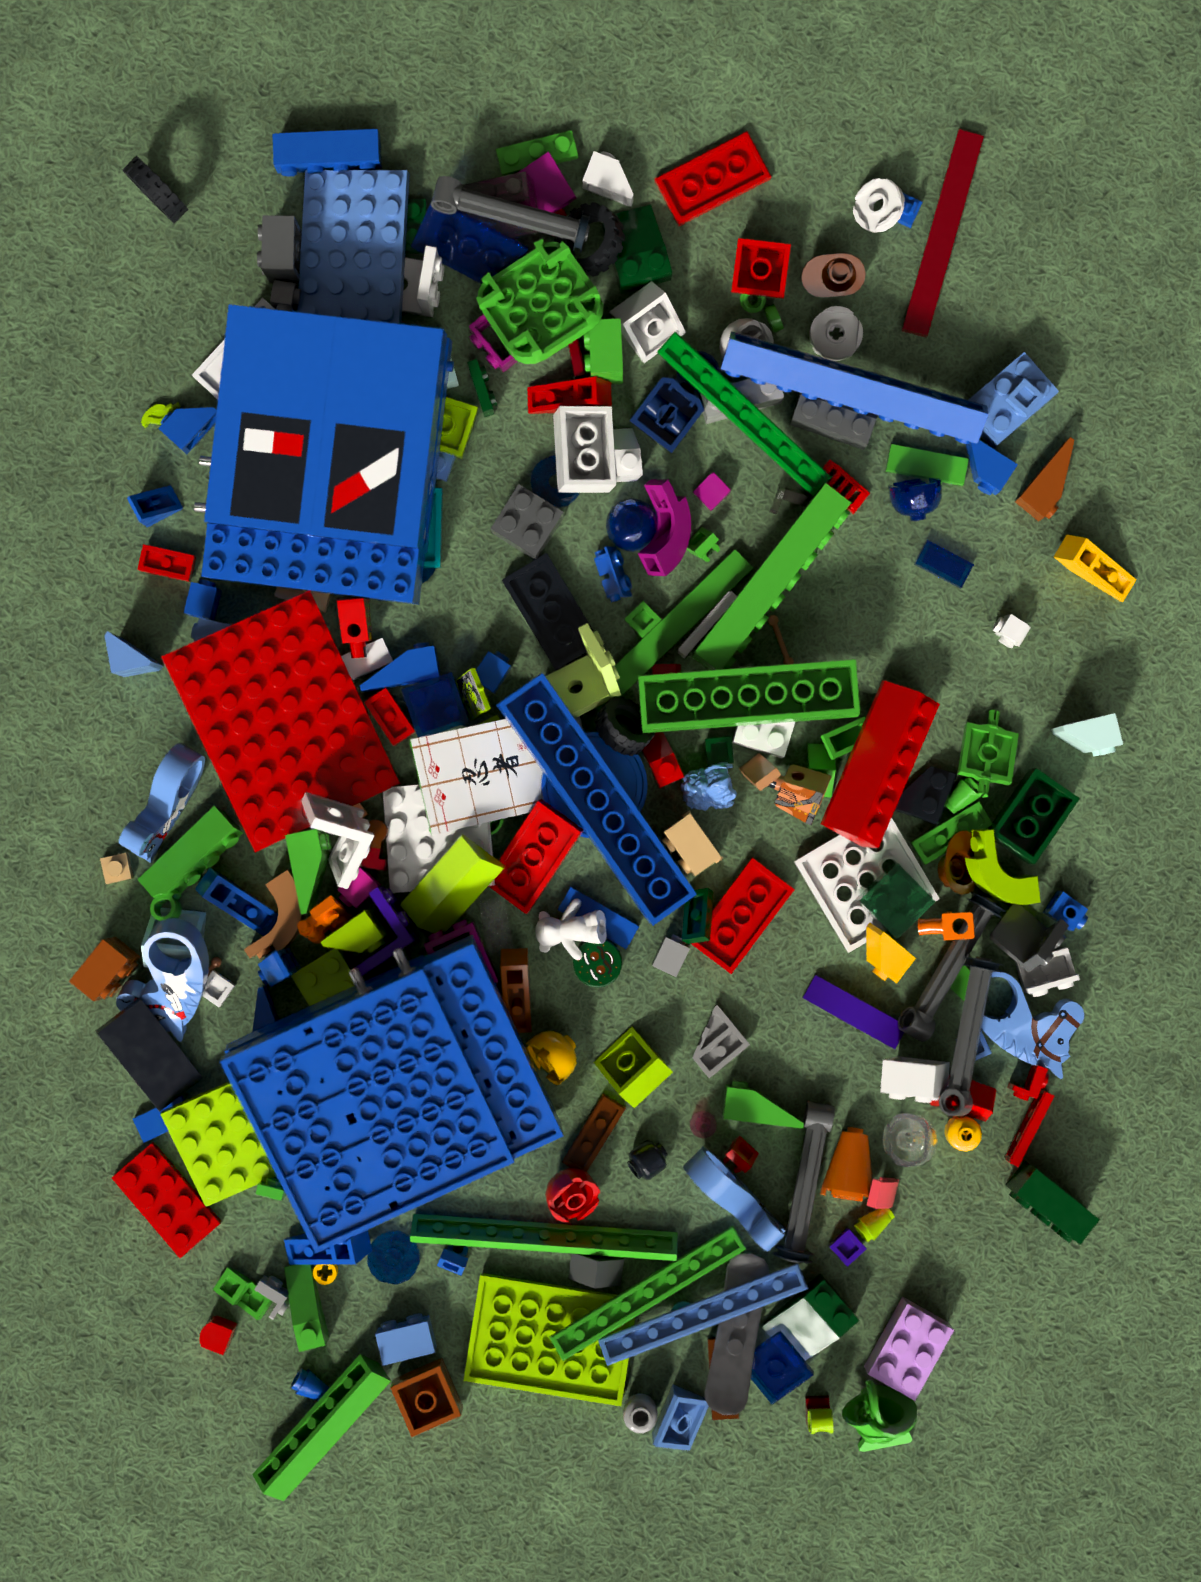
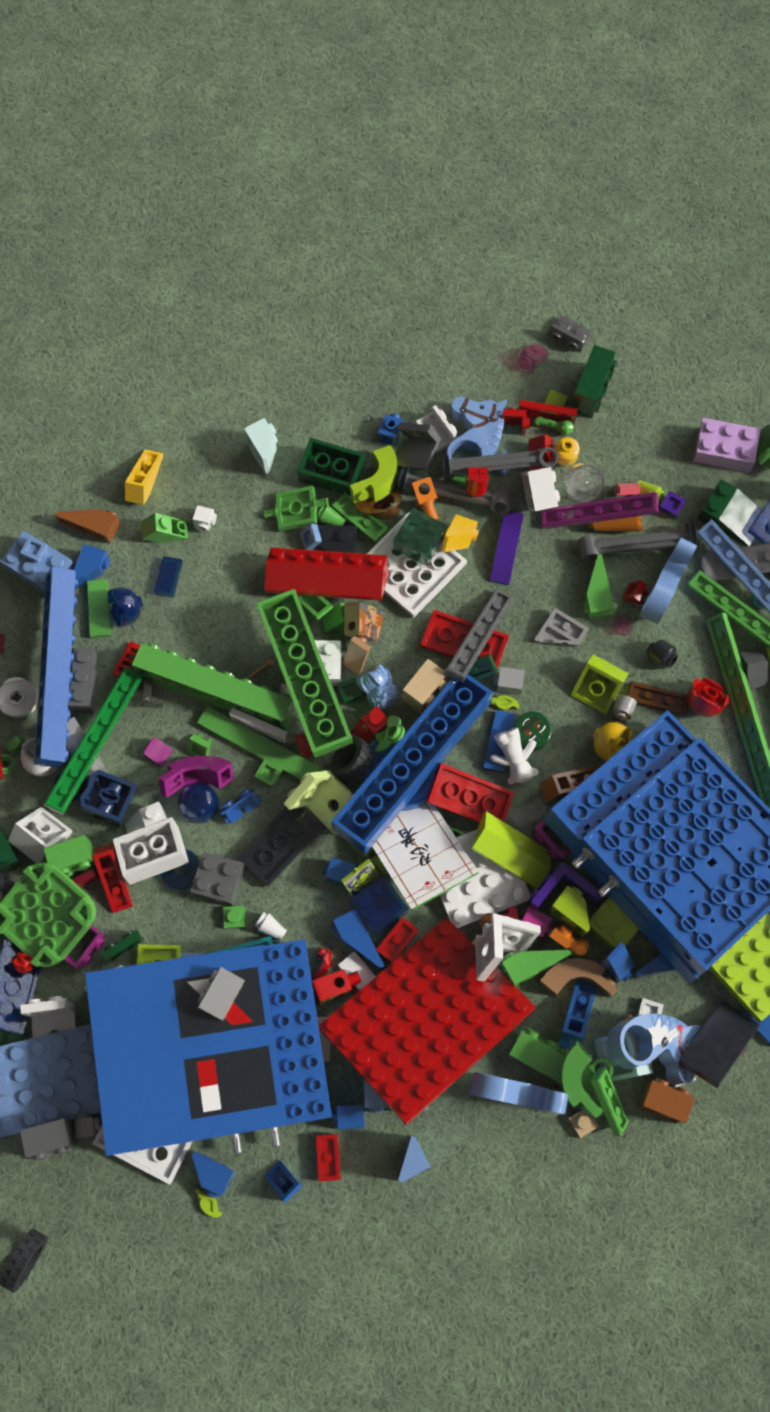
camera: 105 degrees left, 15 degrees down
(125, 903) = (609, 1101): none -> bright green tile
(148, 867) = (574, 1064): none -> bright green arch
(370, 482) = (221, 993): none -> light grey brick
(387, 622) = (324, 964): none -> red arm
(452, 569) = (269, 926): none -> white cone
(477, 530) = (234, 917): none -> bright green plate
(492, 263) = (22, 962): none -> red plate
(592, 1086) = (623, 707): none -> light grey plate
(638, 781) = (391, 734): none -> bright green plate
(646, 940) = (504, 702): none -> lime piece
(738, 934) = (478, 635): none -> dark grey tile
(859, 1149) = (600, 511): none -> magenta tile
(942, 761) = (310, 537): none -> medium blue tile
(950, 998) = (476, 481): none -> red piece
(999, 1143) = (564, 427): none -> bright green piece
(1011, 575) = (163, 528): none -> bright green slope
(1044, 1144) = (556, 398): none -> lime tile
(1116, 1134) = (532, 357): none -> clear pink bracket
(1138, 1198) = (570, 333): none -> flat silver bracket

